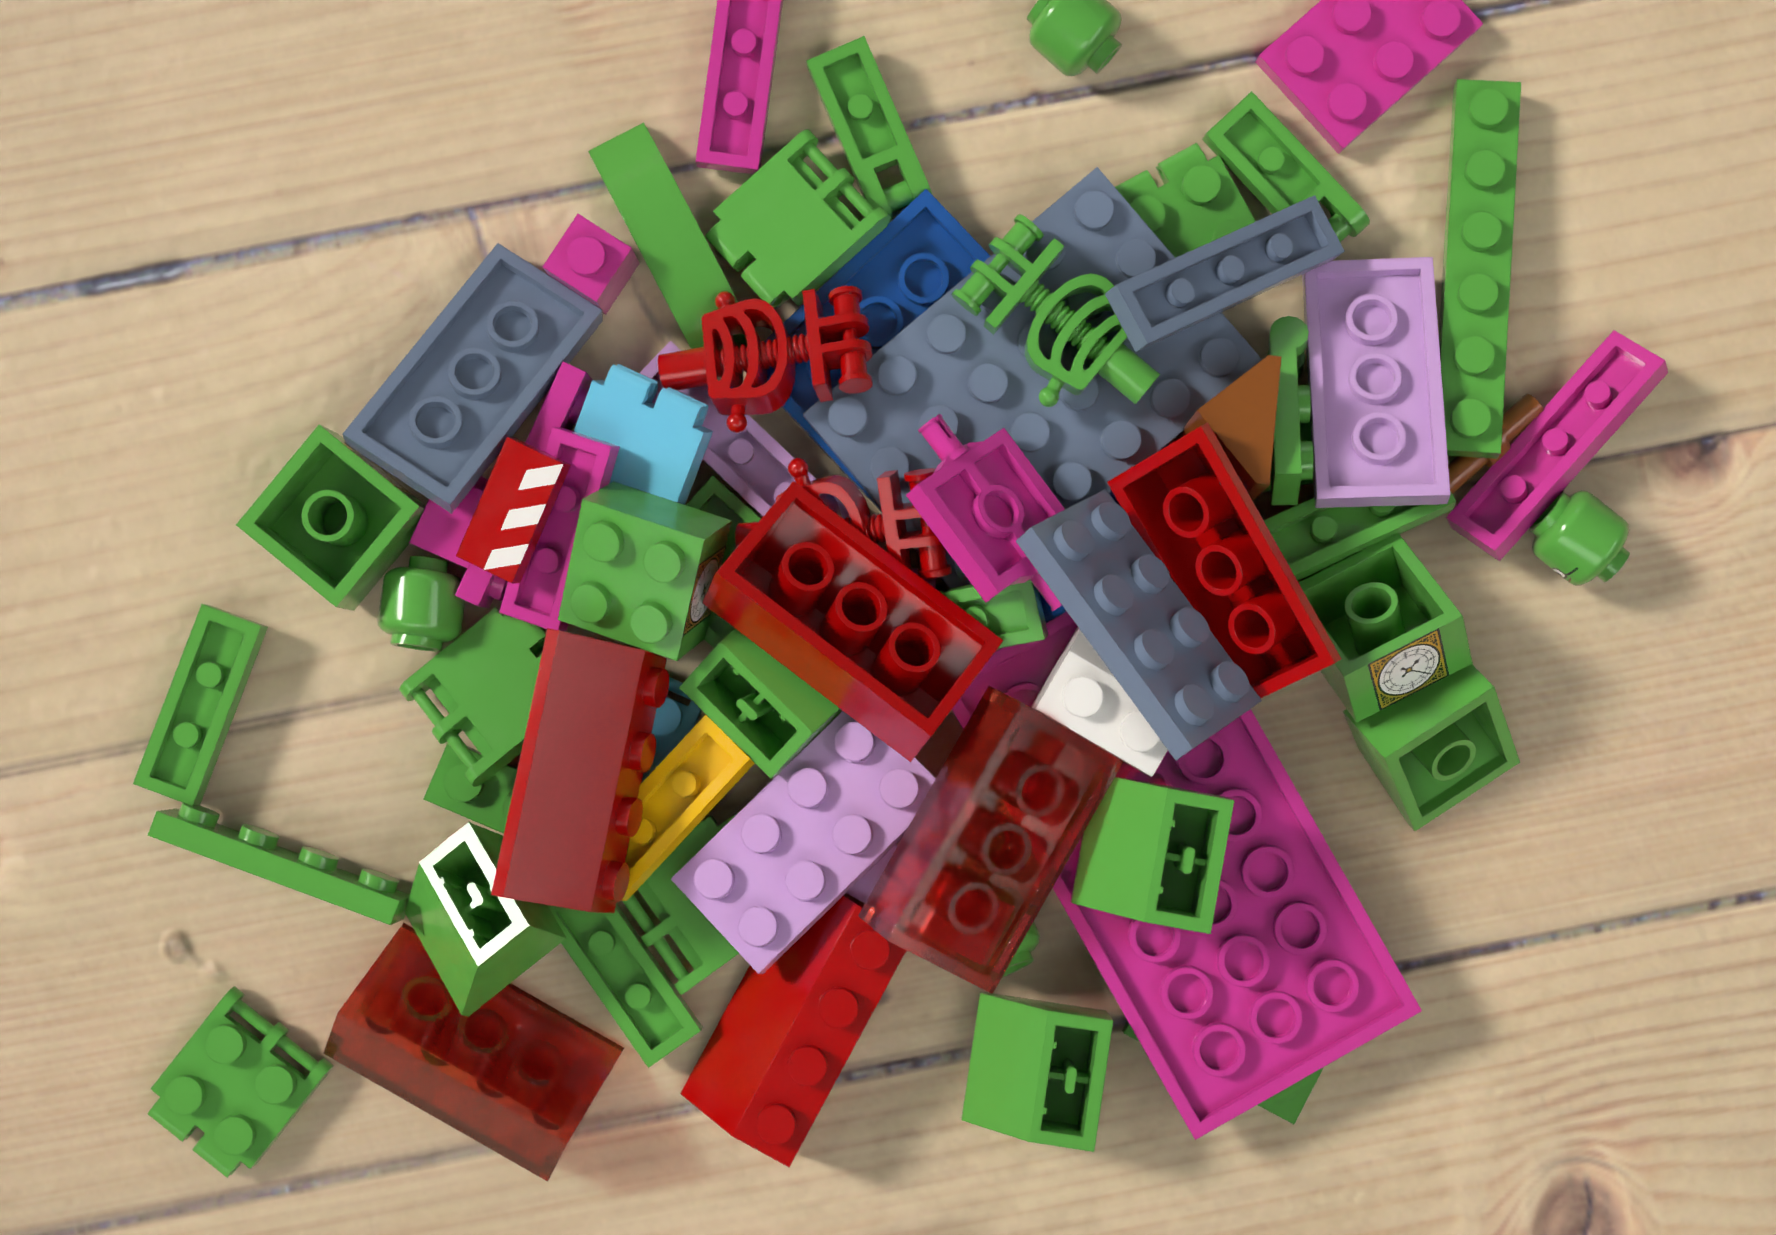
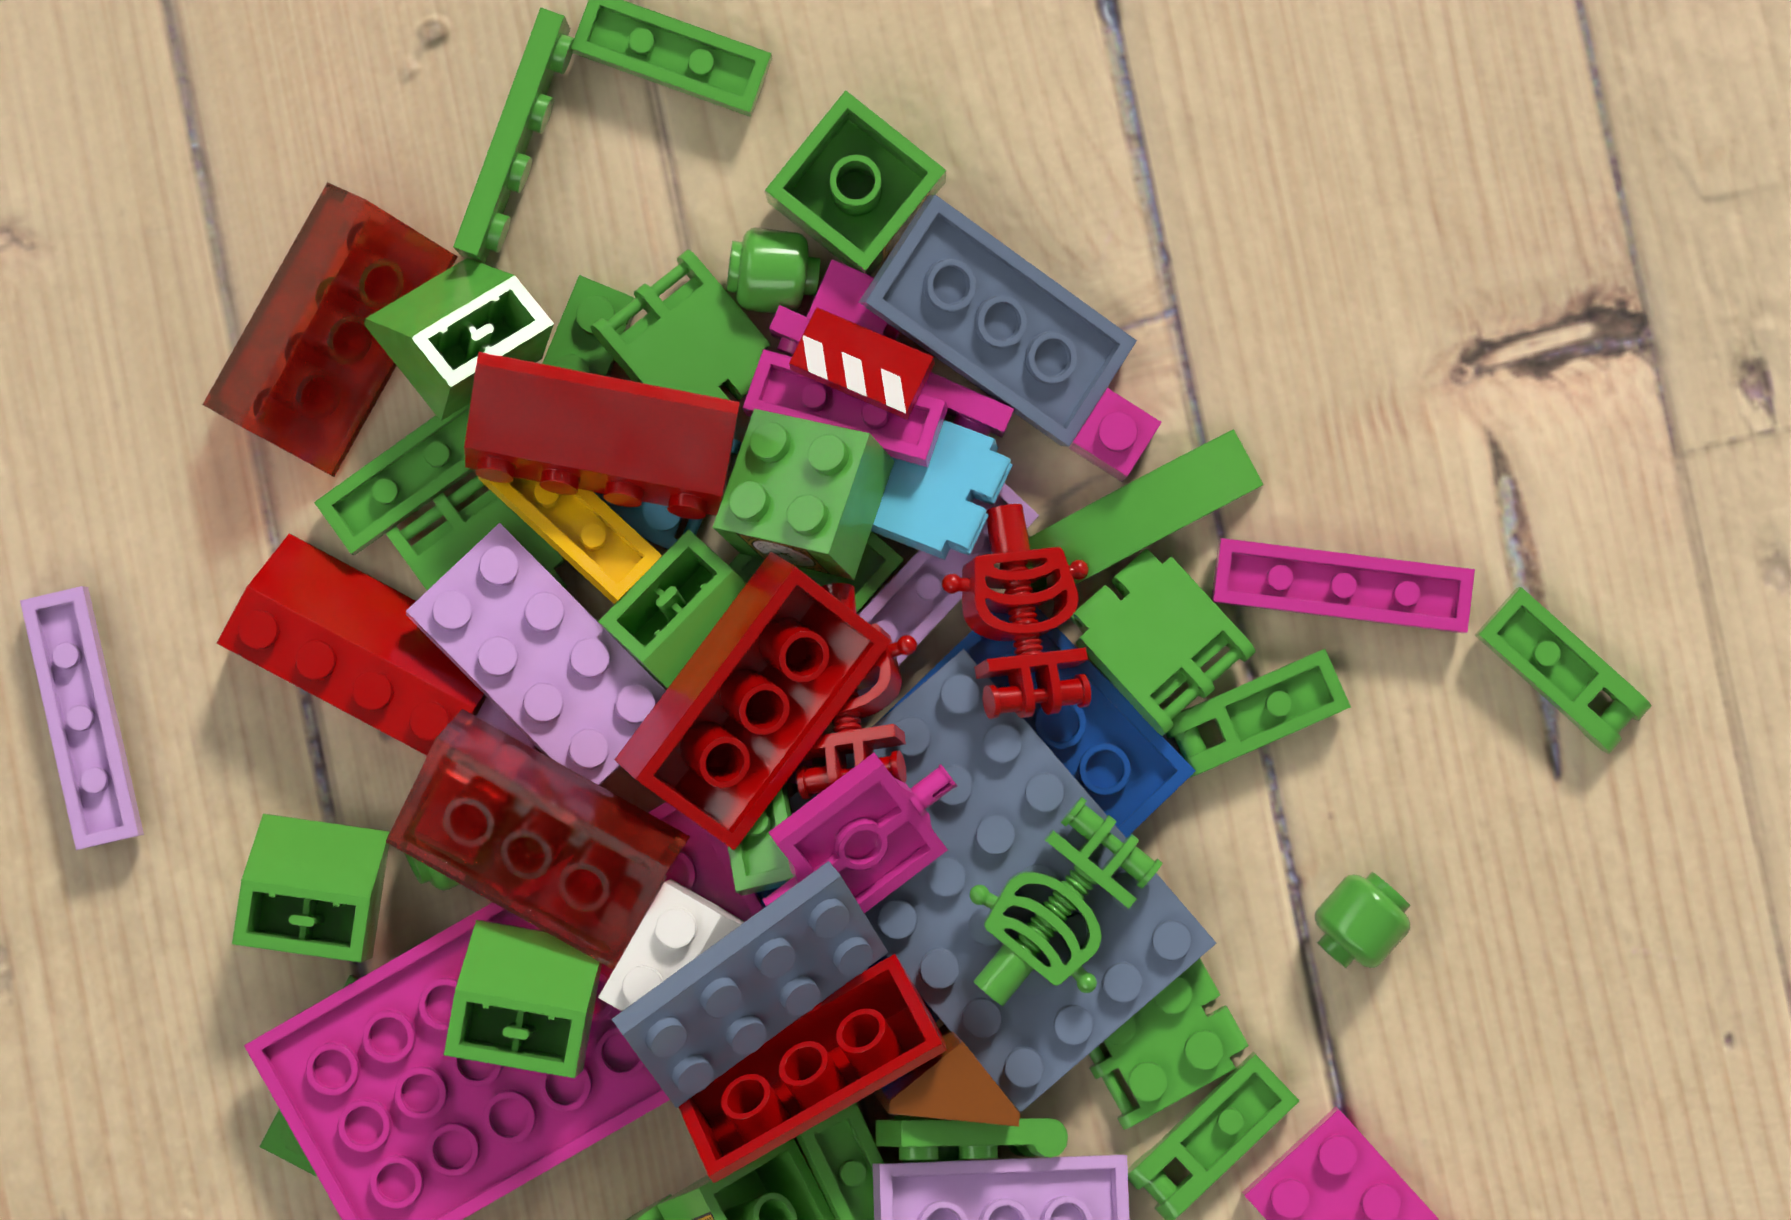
camera: 90 degrees right, 0 degrees up
(235, 1086) = (295, 93): bright green plate -> none
(1224, 273) = (1105, 1071): sand blue plate -> none

